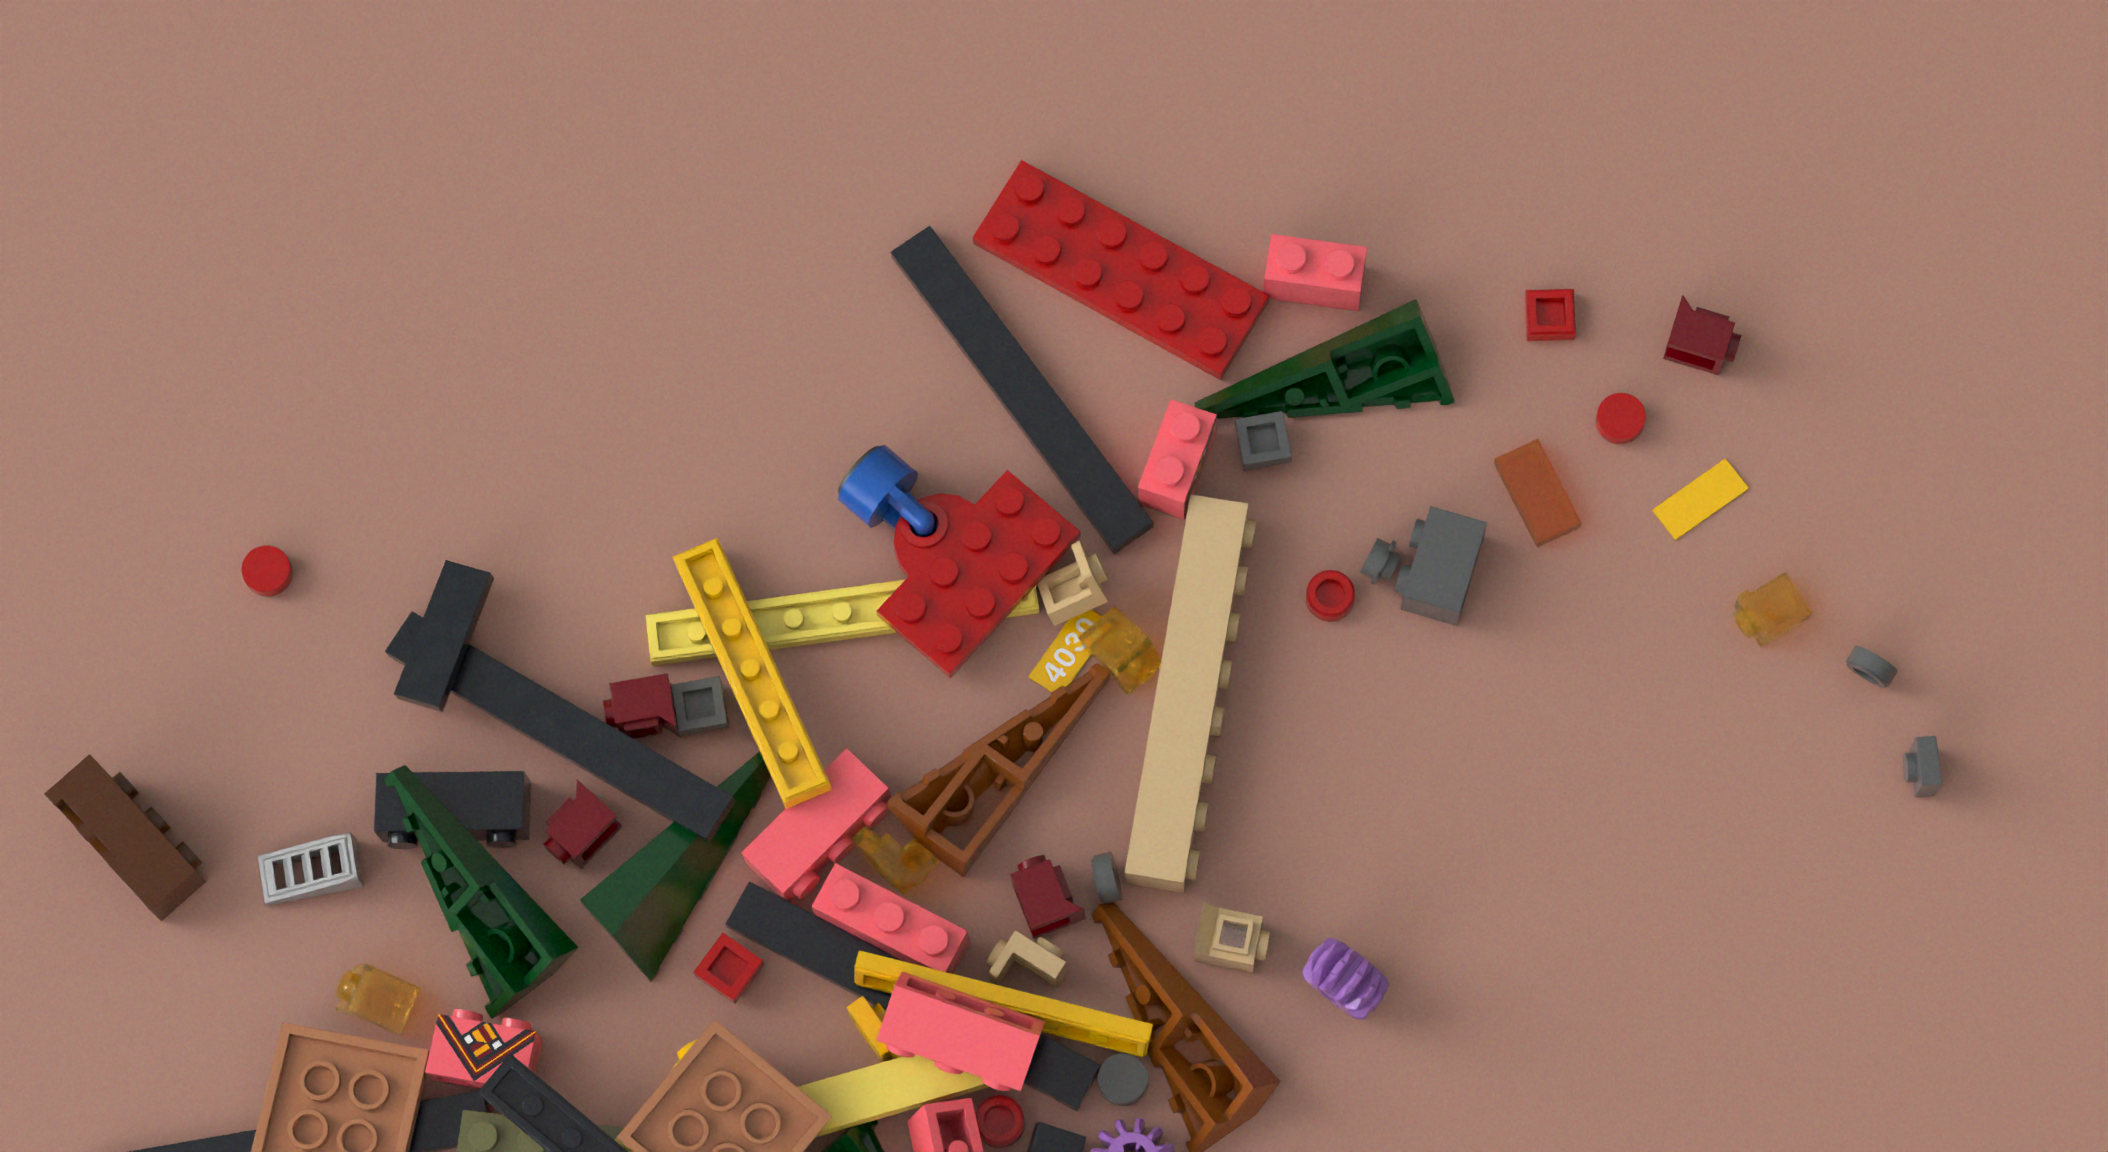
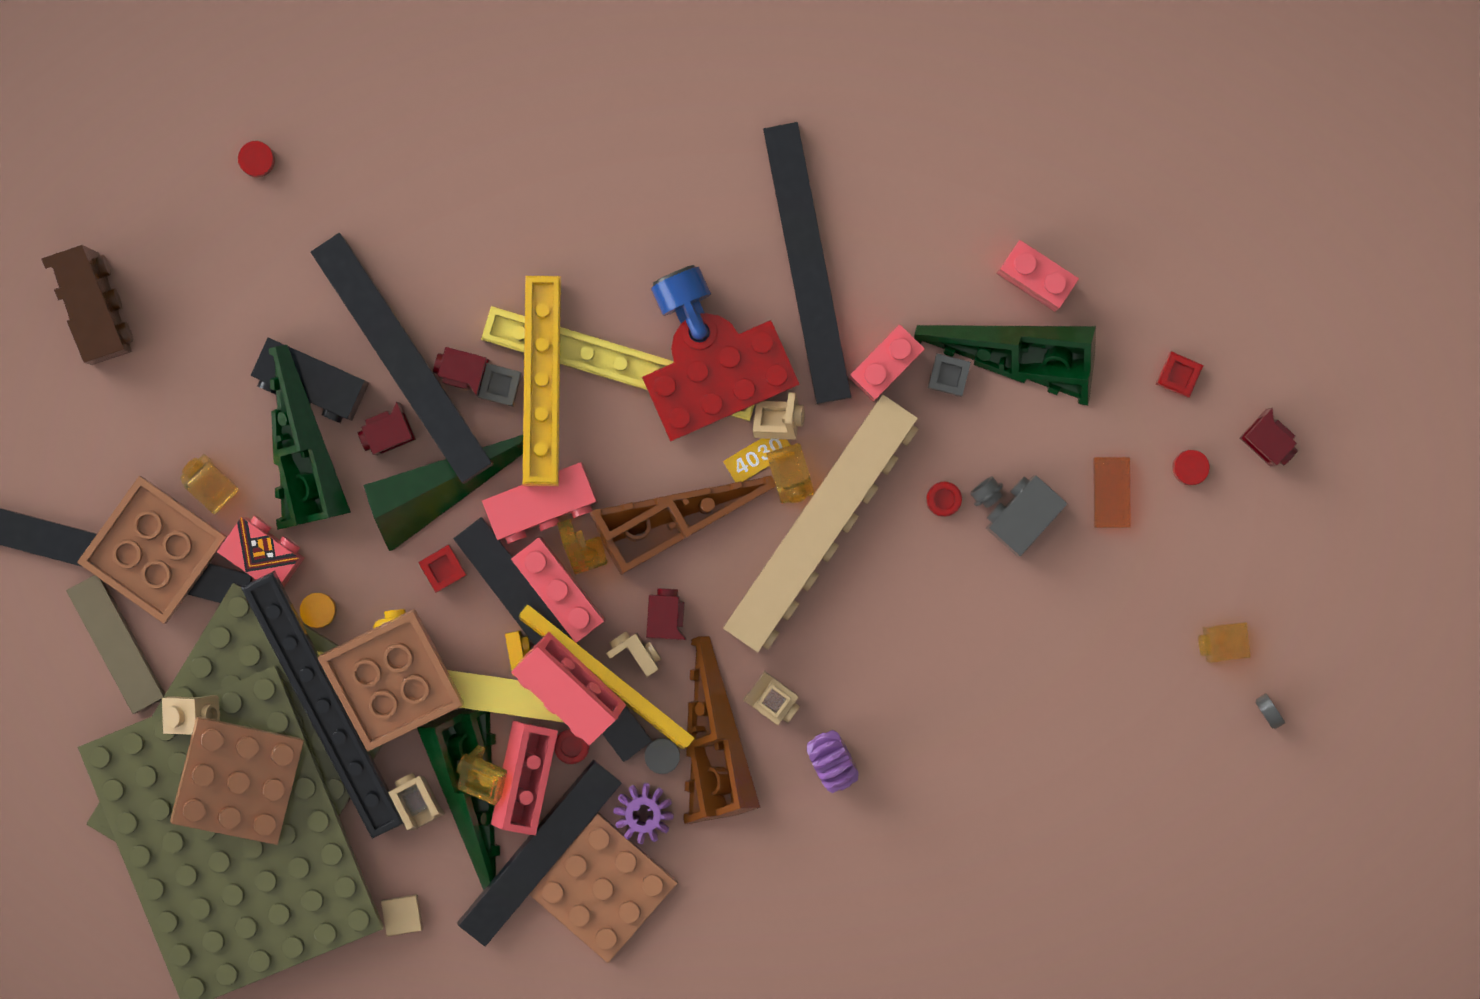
camera: 20 degrees right, 15 degrees up
(349, 879) = (228, 383): light grey slope -> none
(444, 636) = (352, 261): black tile -> none
(591, 1094) = (317, 610): none -> light orange tile
(1106, 878) = (711, 622): dark grey tile -> none
(1121, 269) = (910, 210): red plate -> none
(1700, 499) = (1216, 544): yellow sticker -> none
(1923, 766) = (1269, 792): dark grey plate -> none

